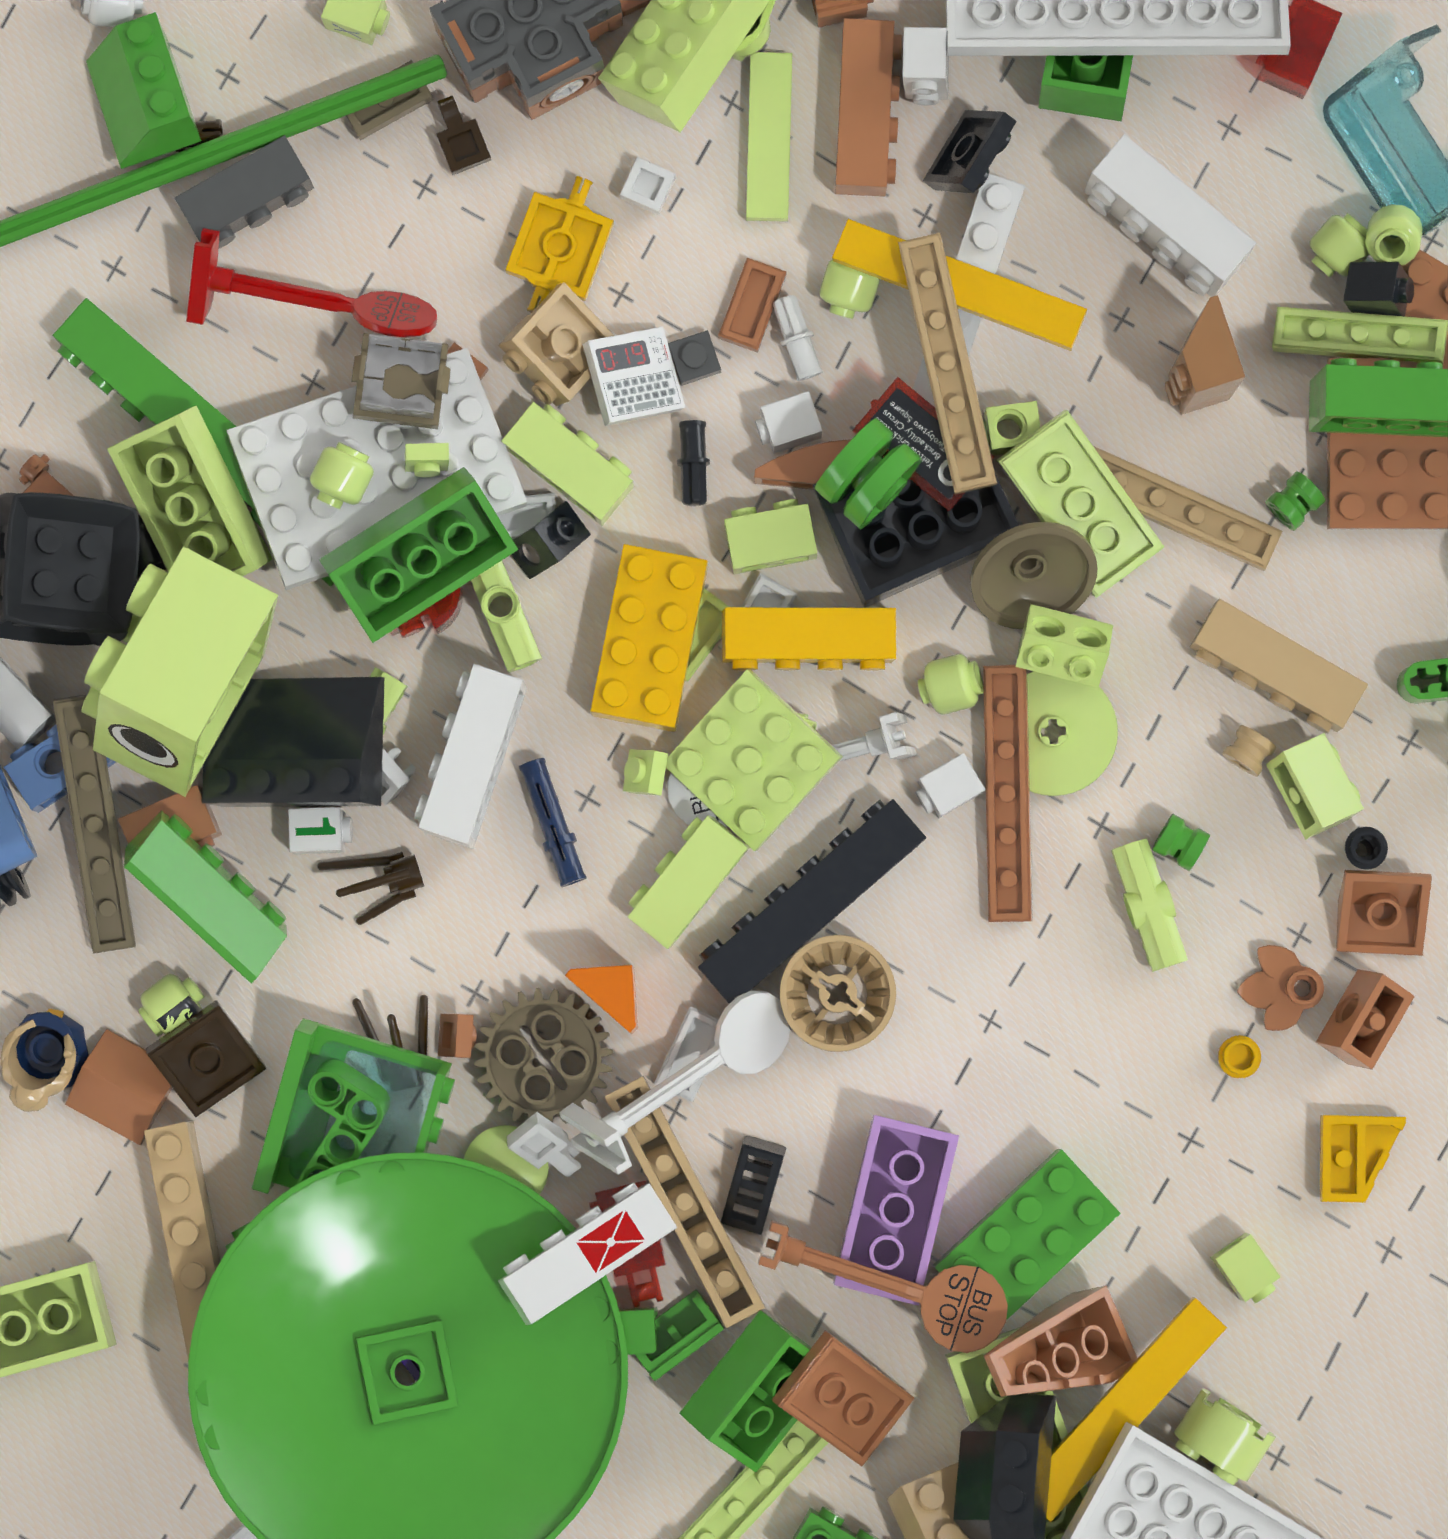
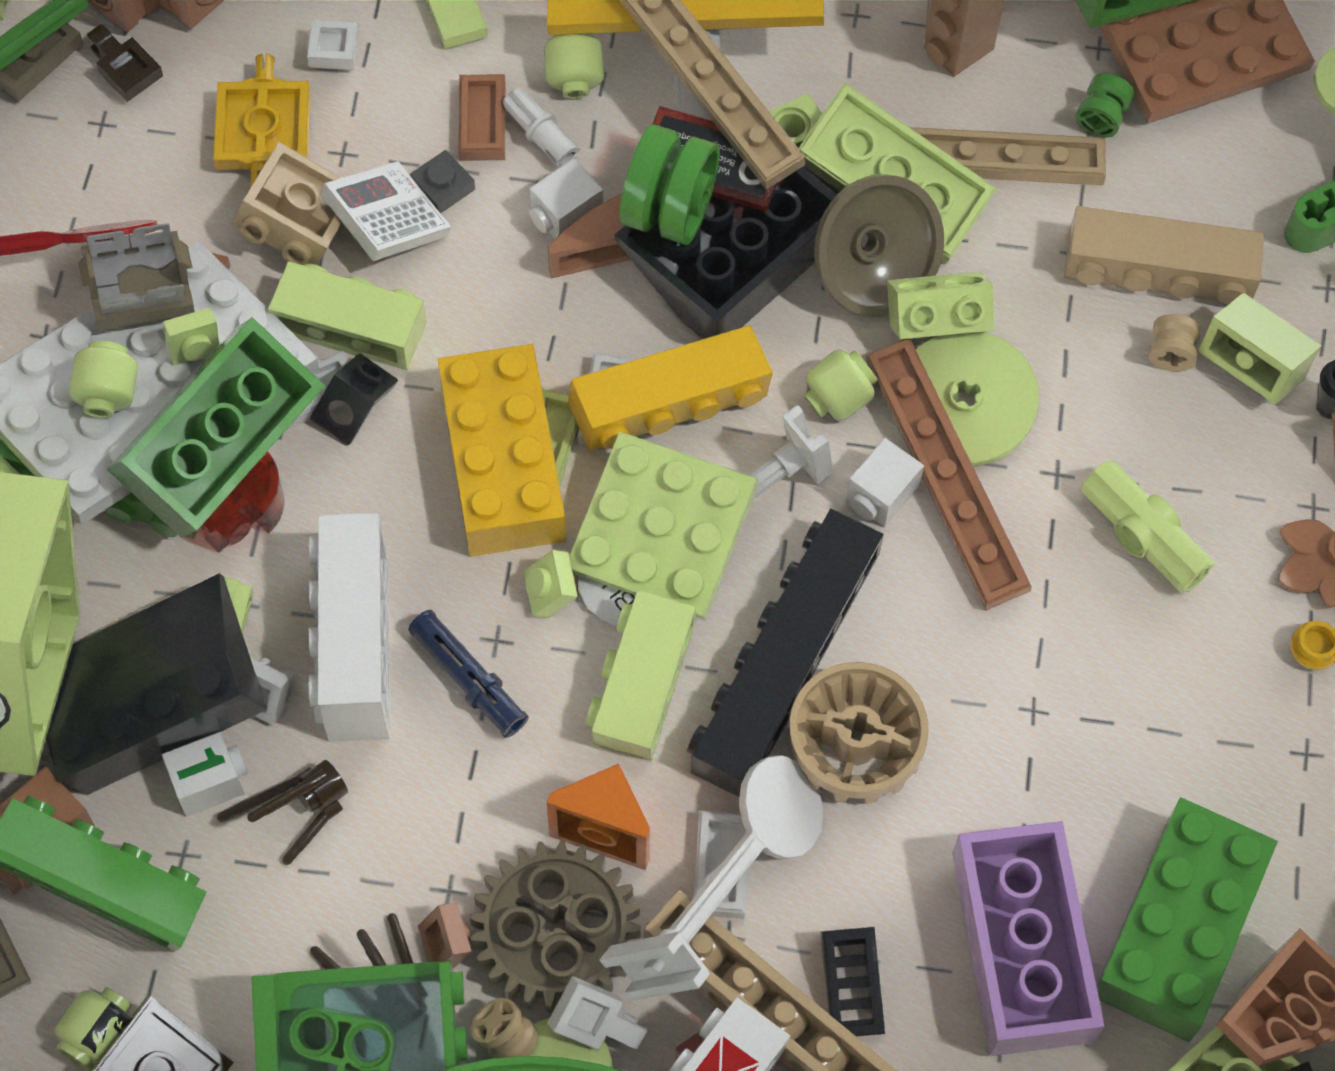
camera: 25 degrees left, 20 degrees down
(476, 1117) = (503, 1030): none -> tan wheel
(511, 631) = (311, 455): yellowish green piece -> none
(693, 462) = (479, 273): black axle -> none
(770, 536) = (590, 313): yellowish green brick -> none
(959, 1306) = (1150, 1005): nougat piece -> none
(1181, 842) = (1149, 452): bright green wheel -> none

